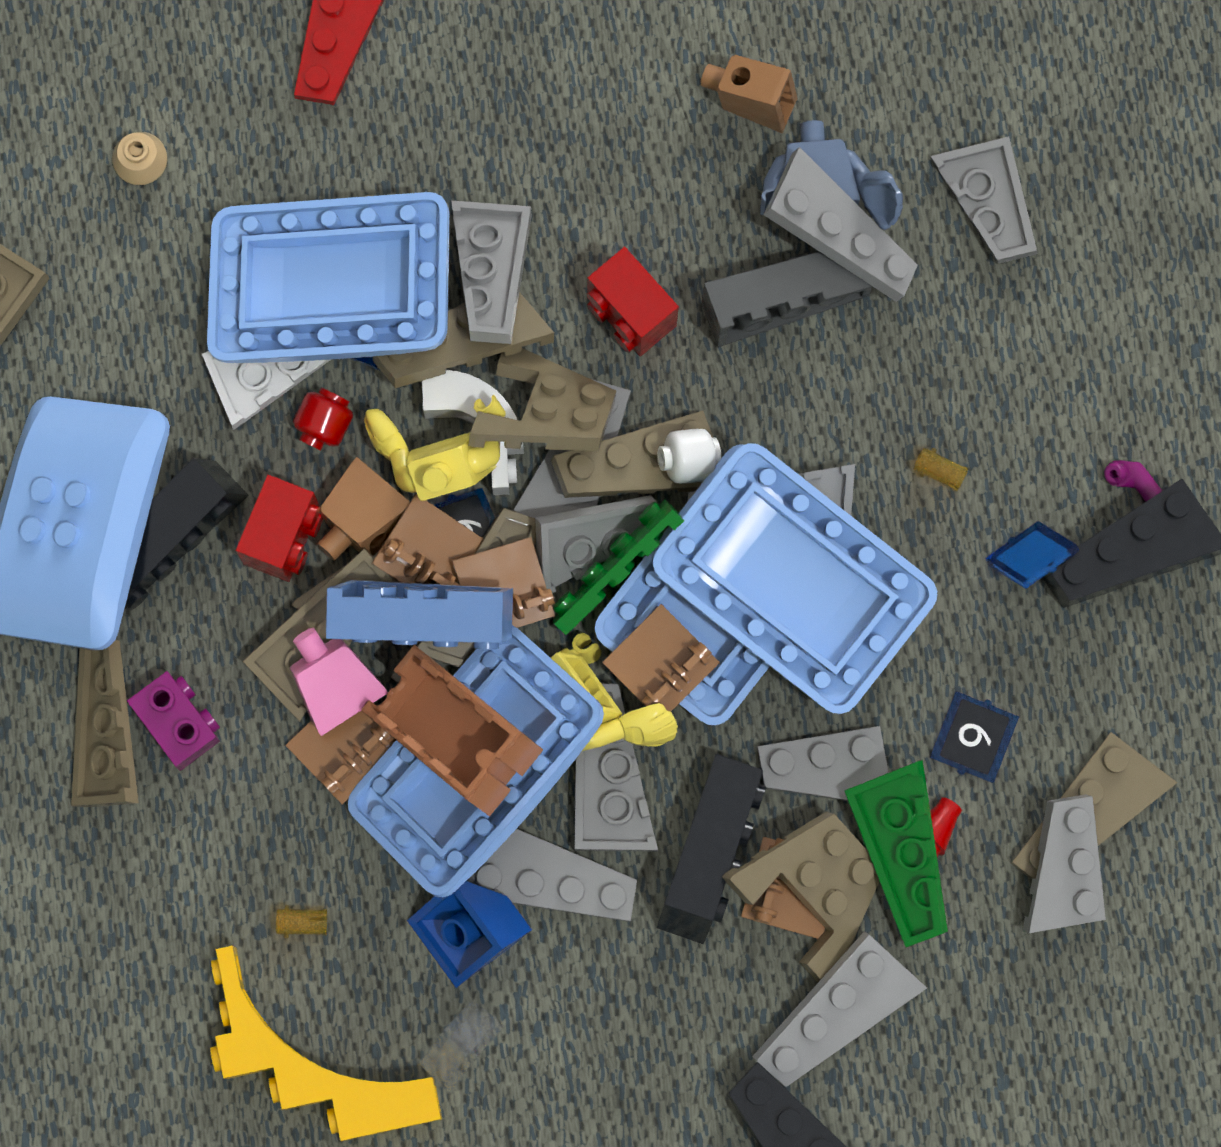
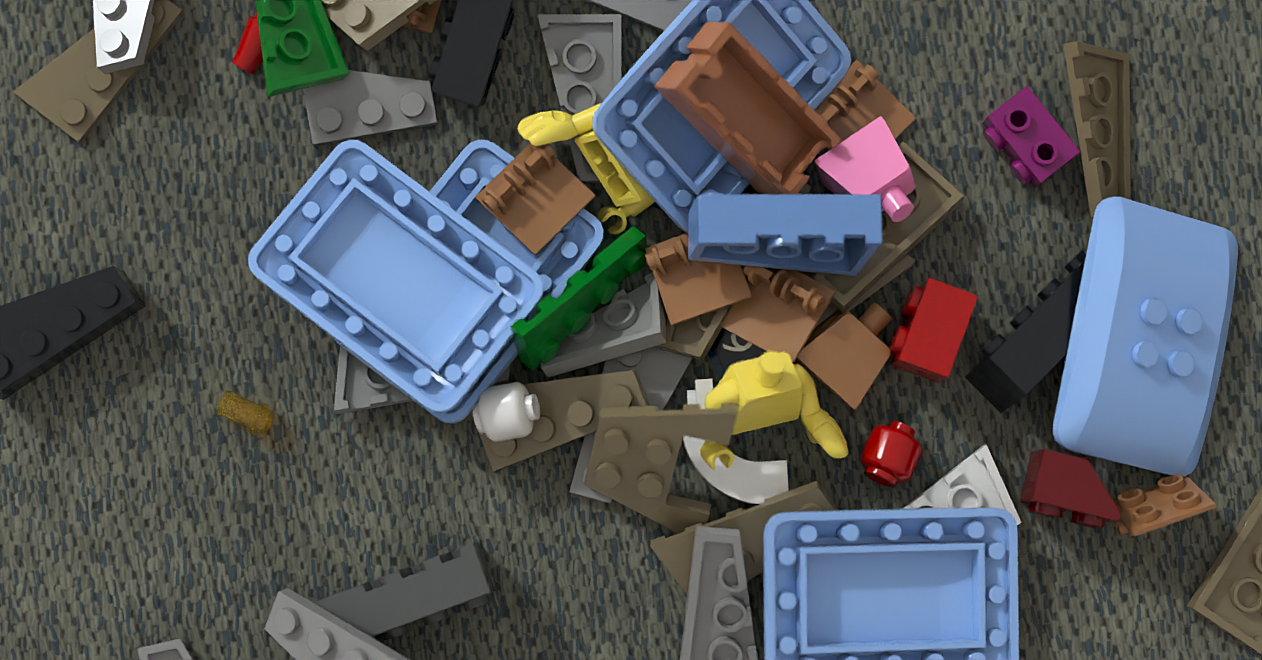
camera: 175 degrees left, 5 degrees up
(70, 364) = (1160, 505): none -> medium nougat hinge
(161, 379) = (1065, 484): none -> dark red slope
(631, 302) = (568, 579): red brick -> none
(974, 737) = (217, 137): piece -> none
(1032, 554) = (151, 318): clear blue piece -> none
(1132, 475) = (45, 410): magenta arm -> none

